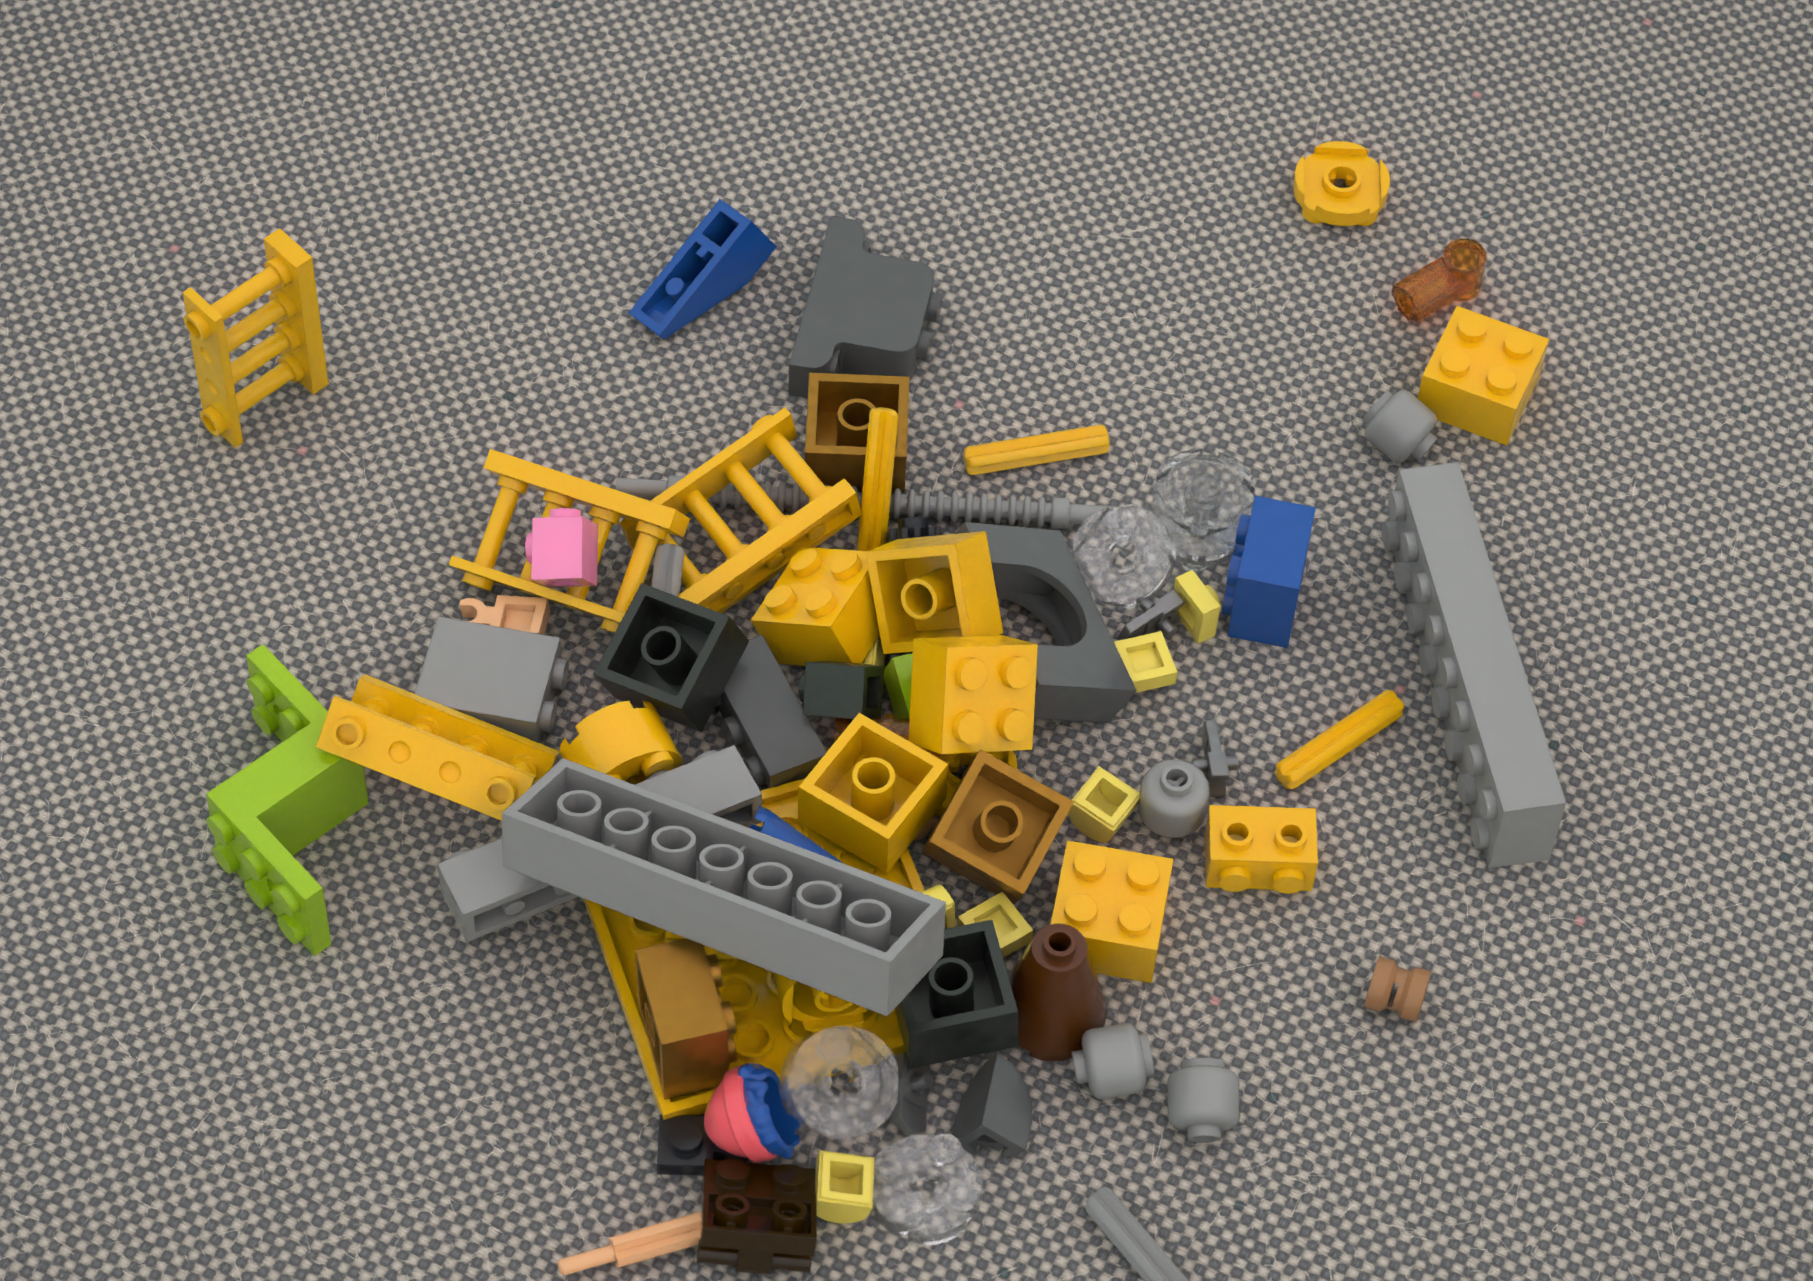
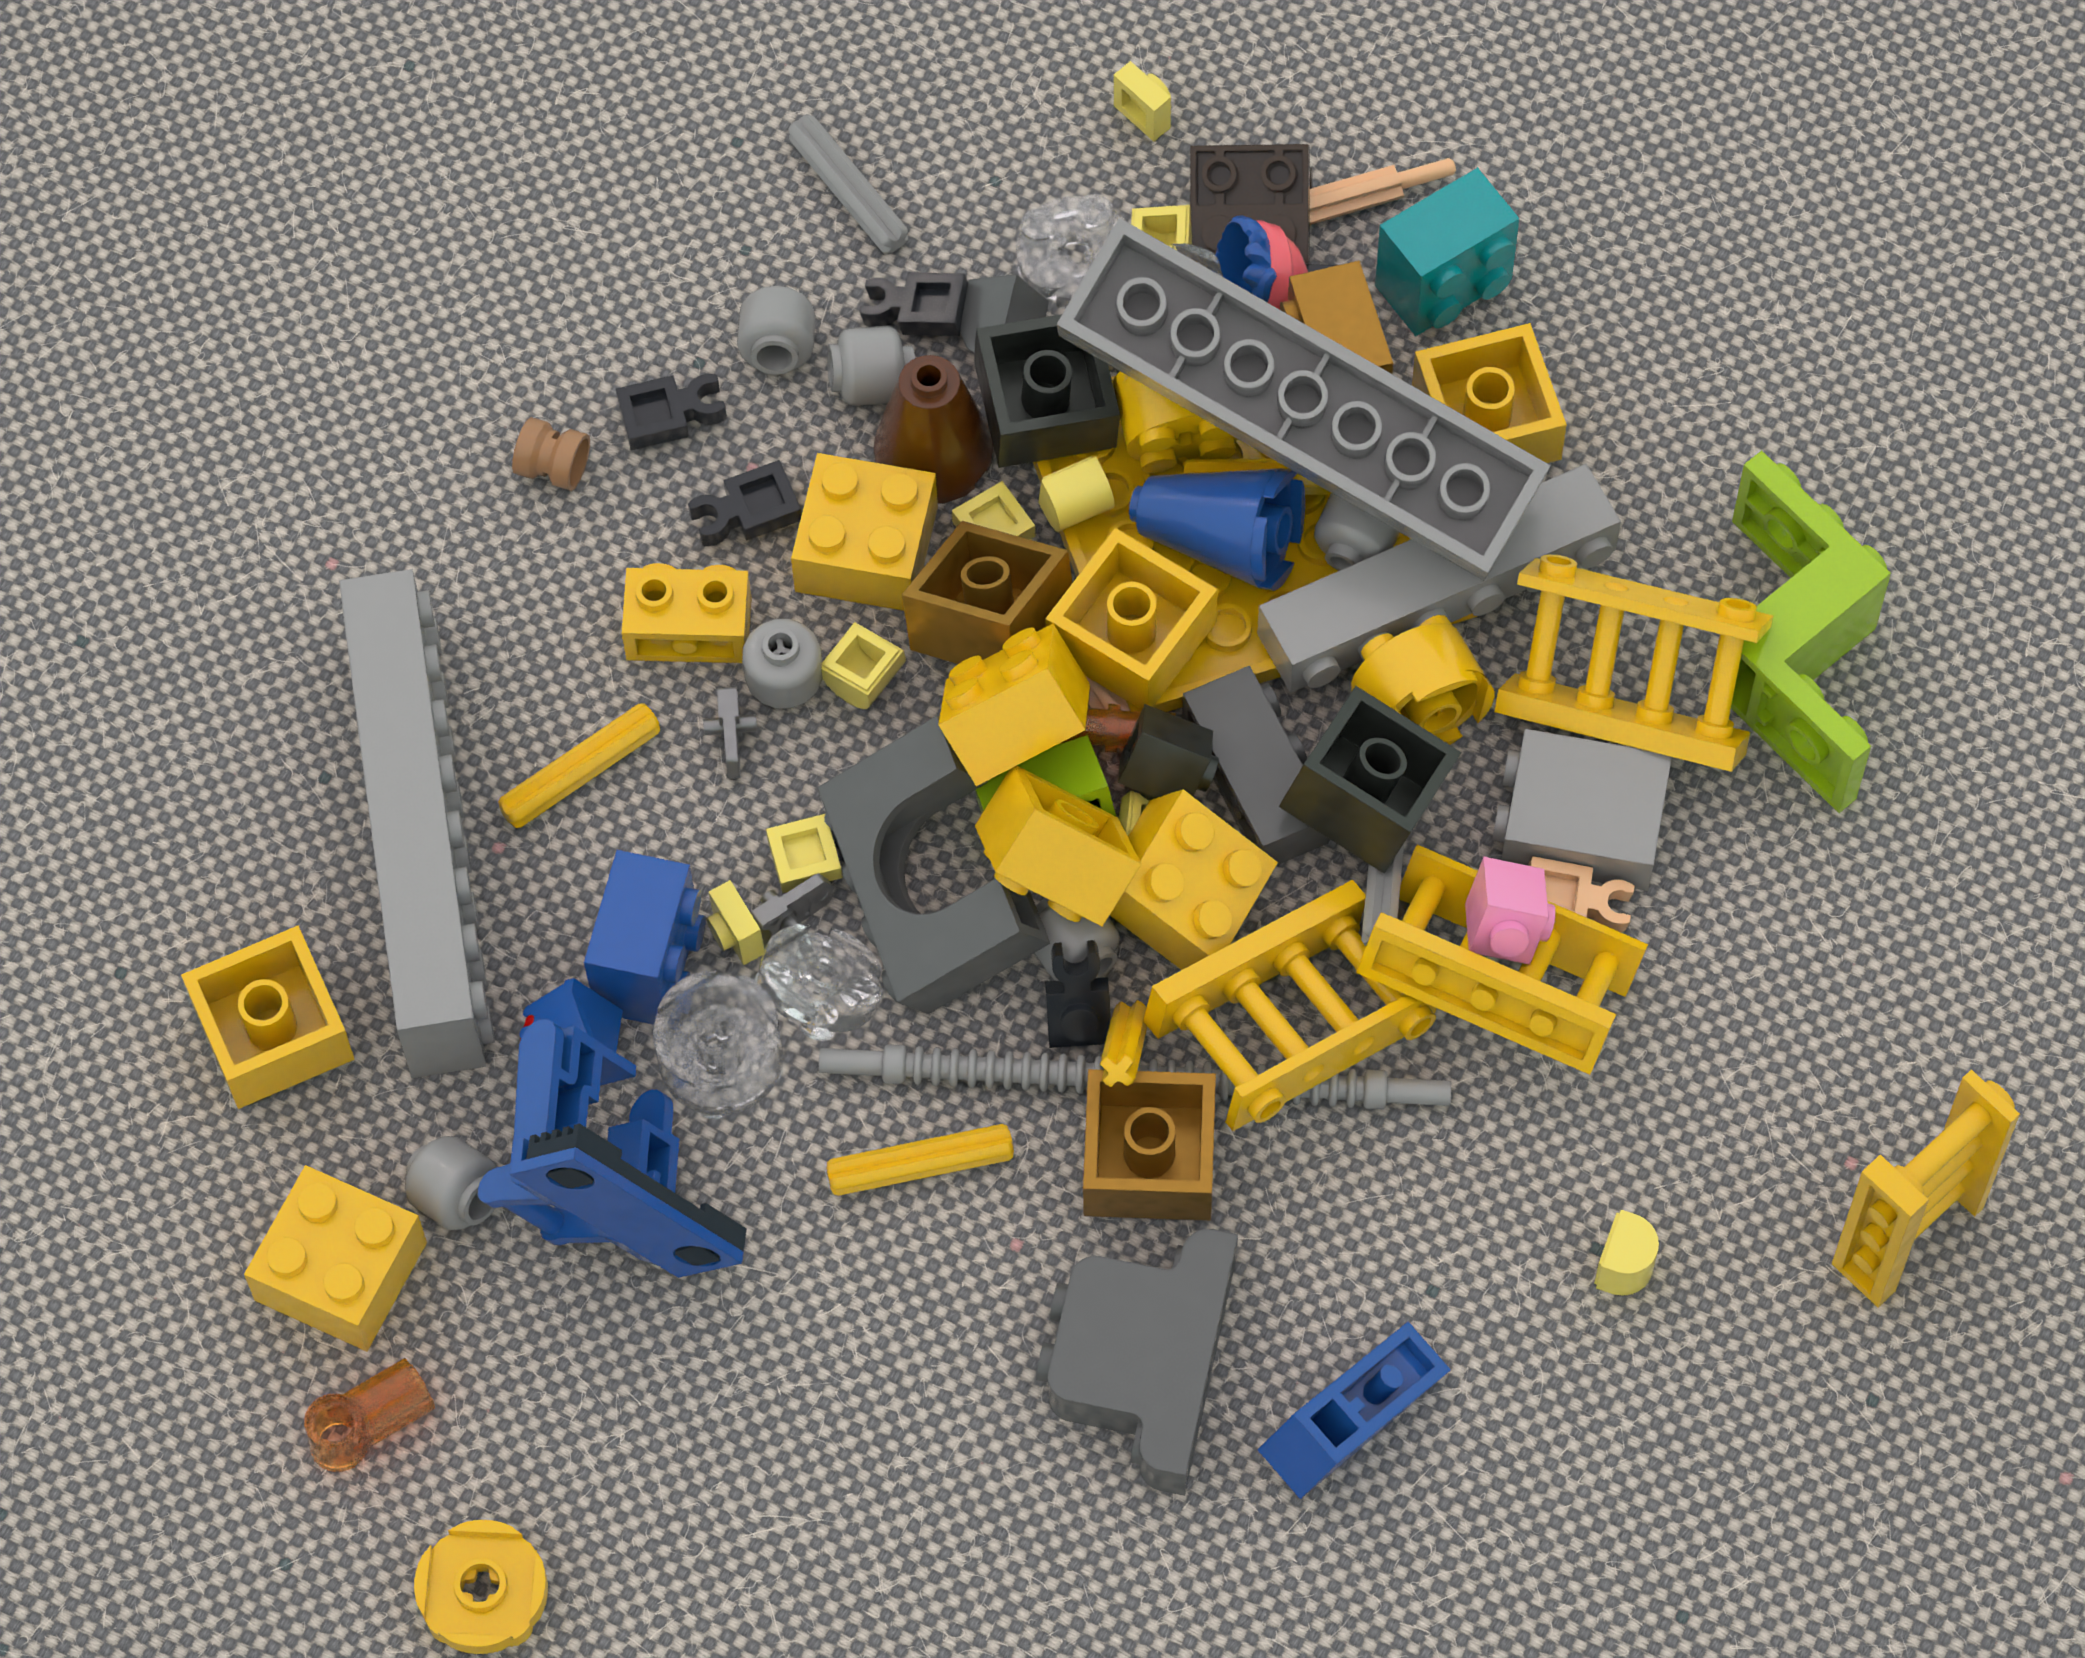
camera: 175 degrees left, 10 degrees up
(488, 368) = (1627, 1255): none -> light yellow brick
(545, 1007) = (1499, 385): none -> yellow brick
(573, 1140) = (1447, 252): none -> teal brick
(1064, 1130) = (925, 306): none -> black plate
(1210, 951) = (754, 501): none -> black plate
(1241, 364) = (598, 1186): none -> blue container
(1302, 1029) = (658, 411): none -> black plate
(1565, 529) = (268, 1017): none -> yellow brick

